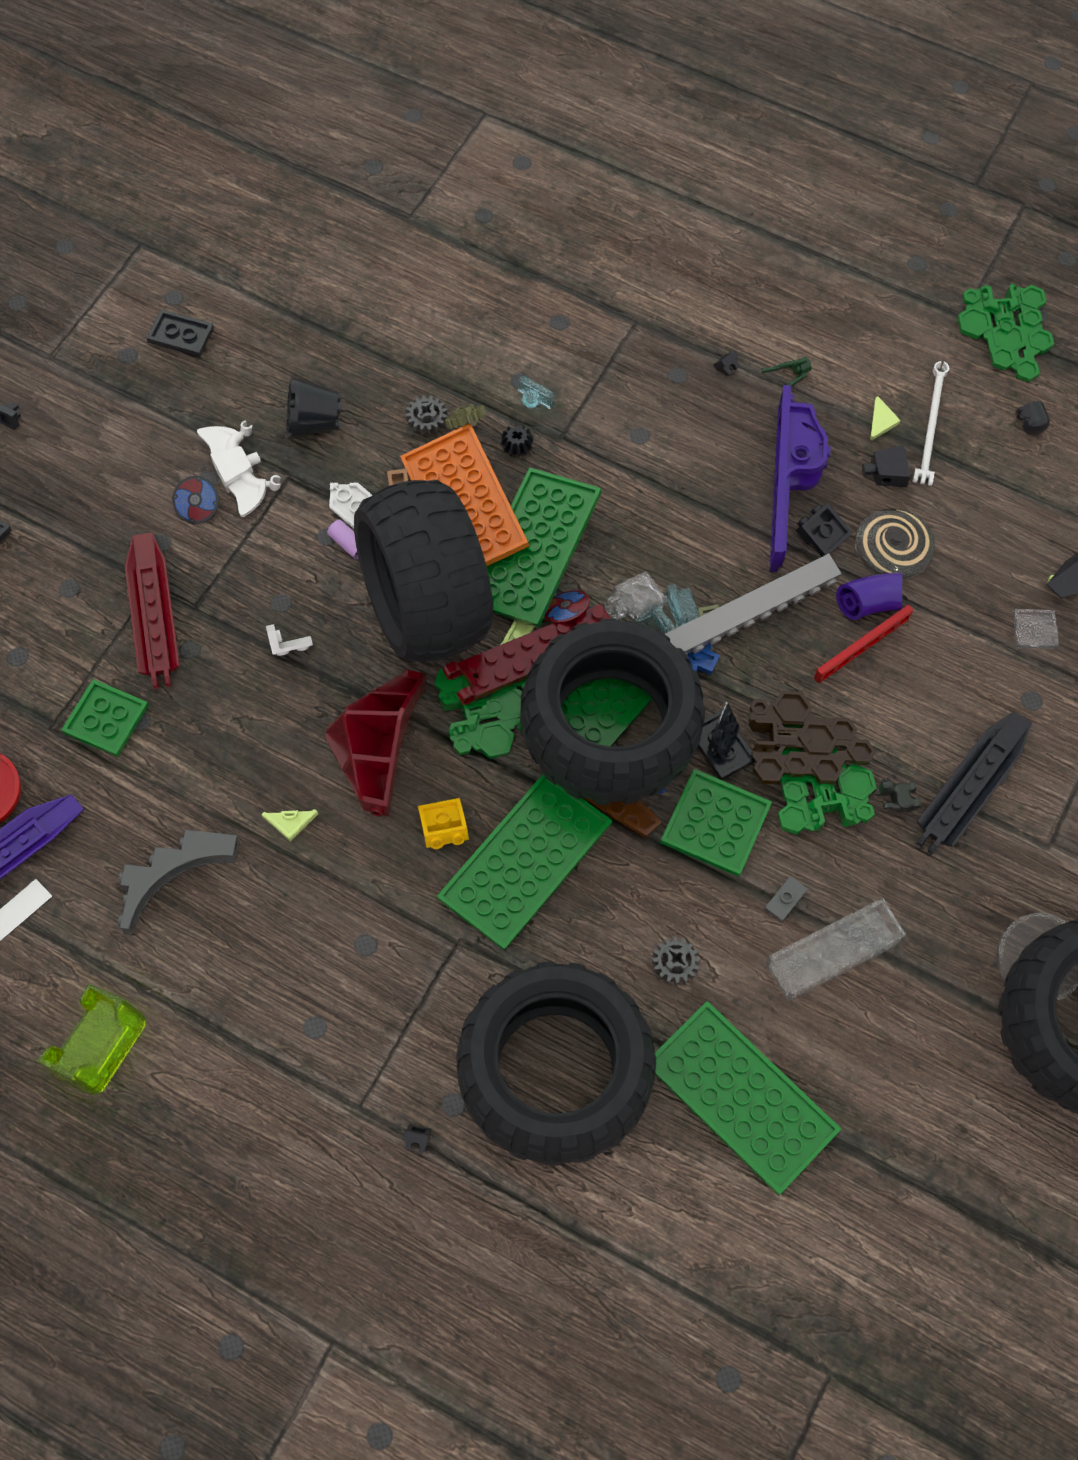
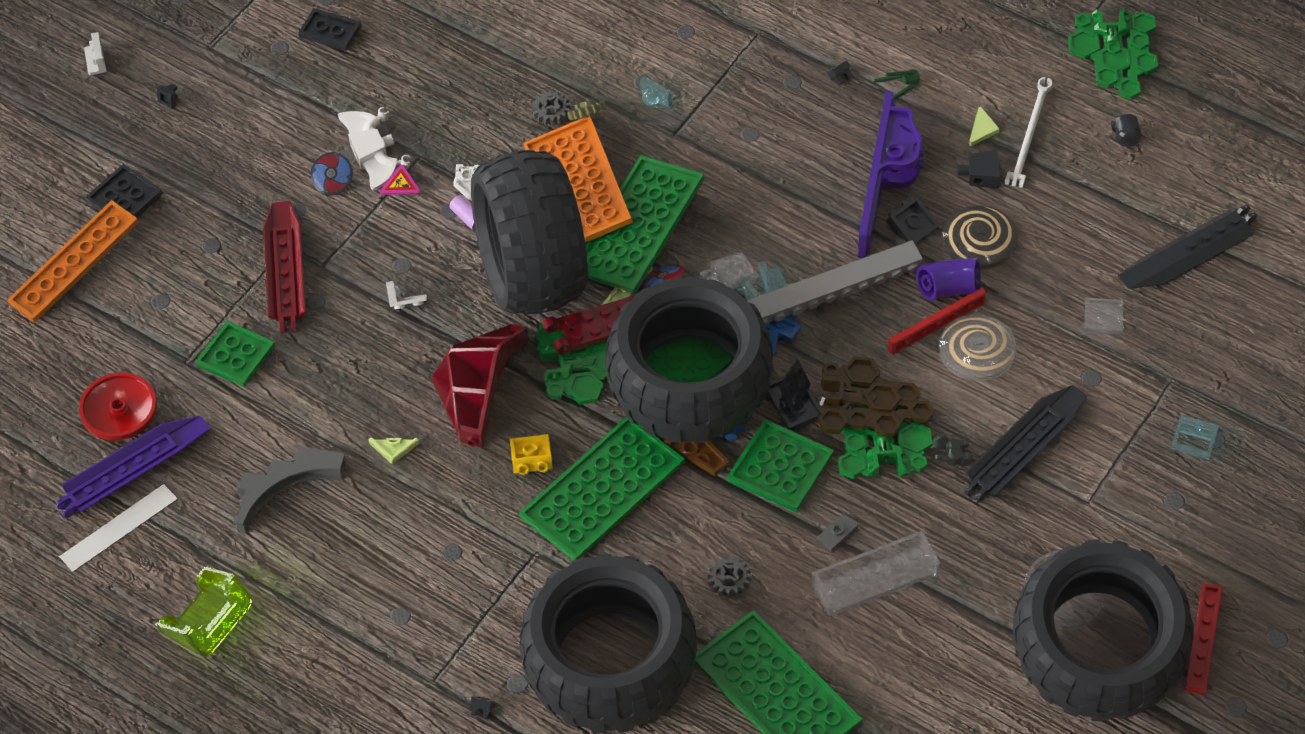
camera: 10 degrees right, 10 degrees down
(271, 508) = (400, 183): none -> piece
(311, 408) = (444, 98): black cone -> none
(517, 440) = (633, 133): black gear -> none
(908, 671) = (977, 347): none -> clear dish

